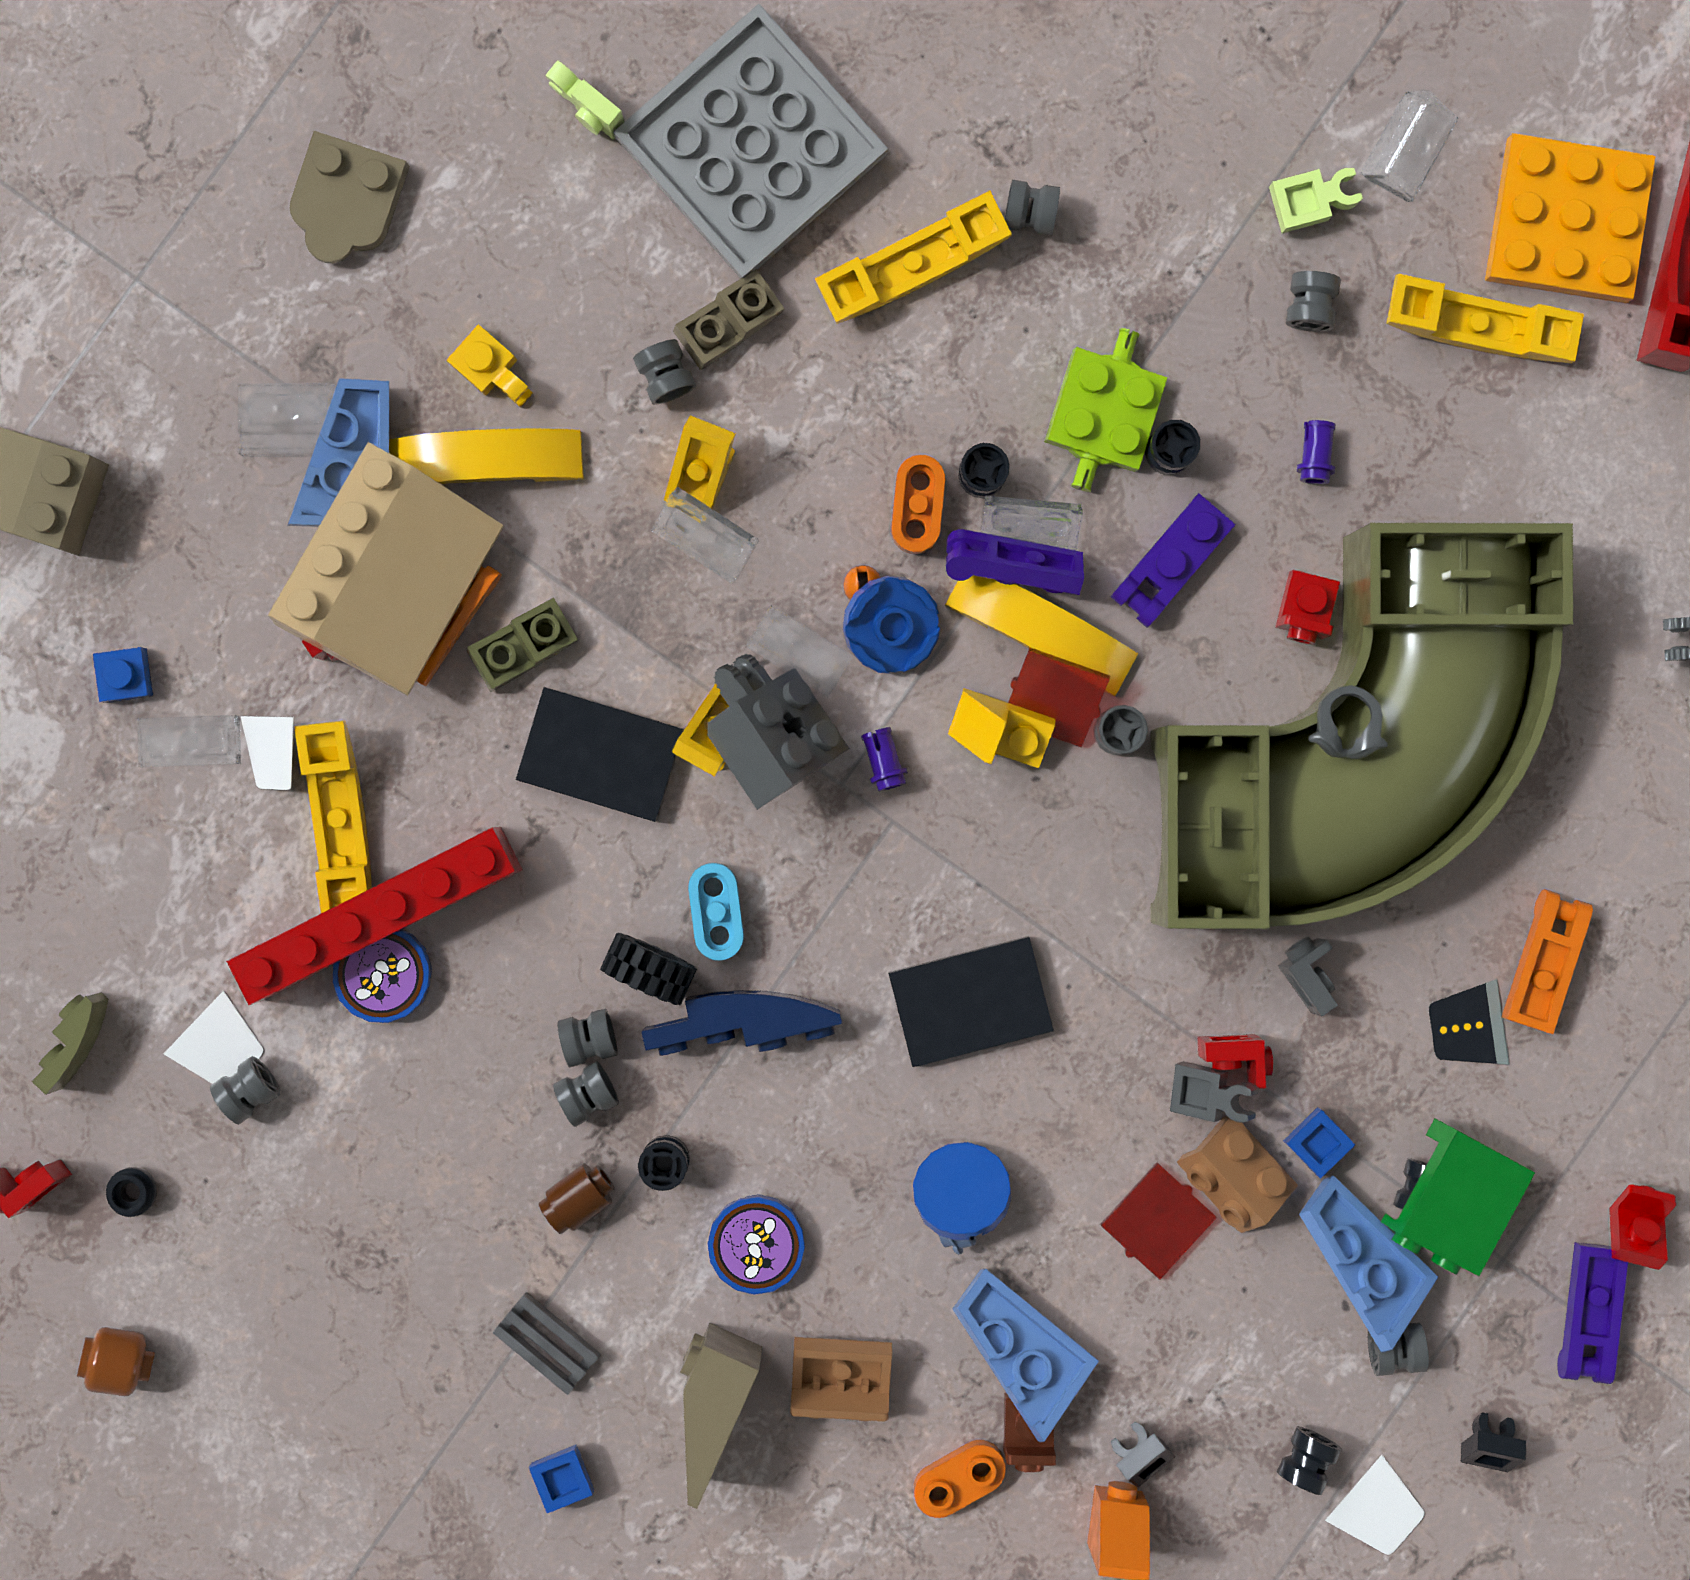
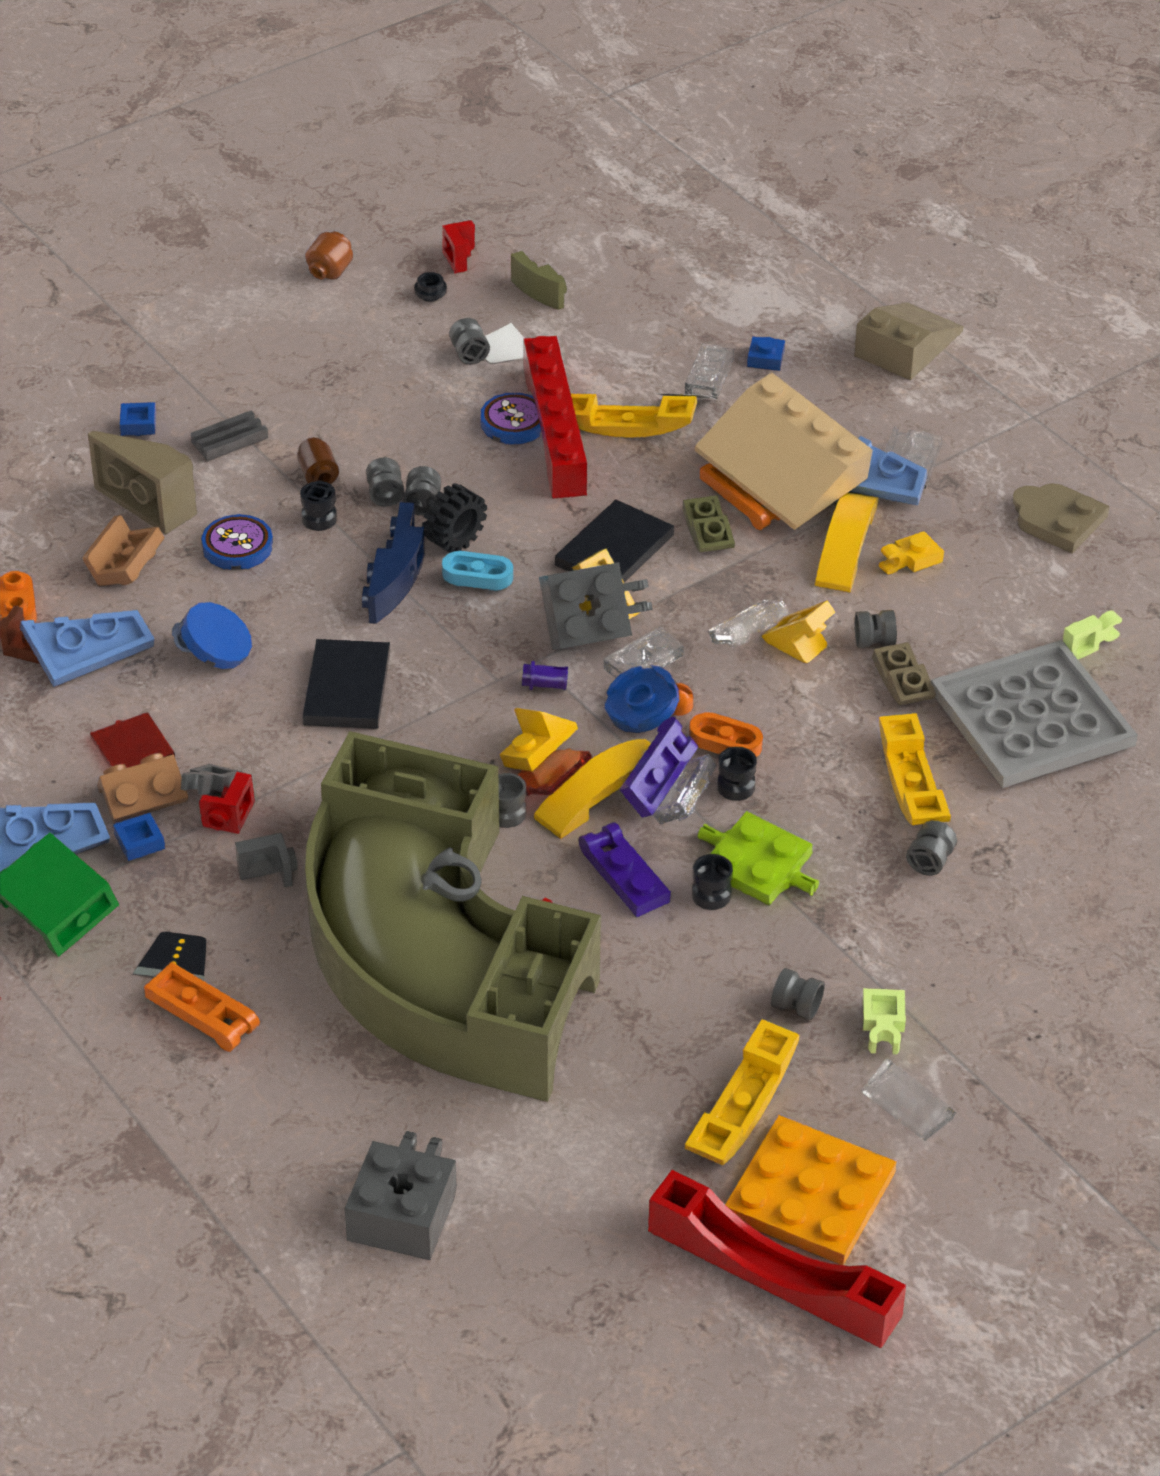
camera: 115 degrees right, 45 degrees down
(1317, 452) = (674, 970): dark purple pin -> none

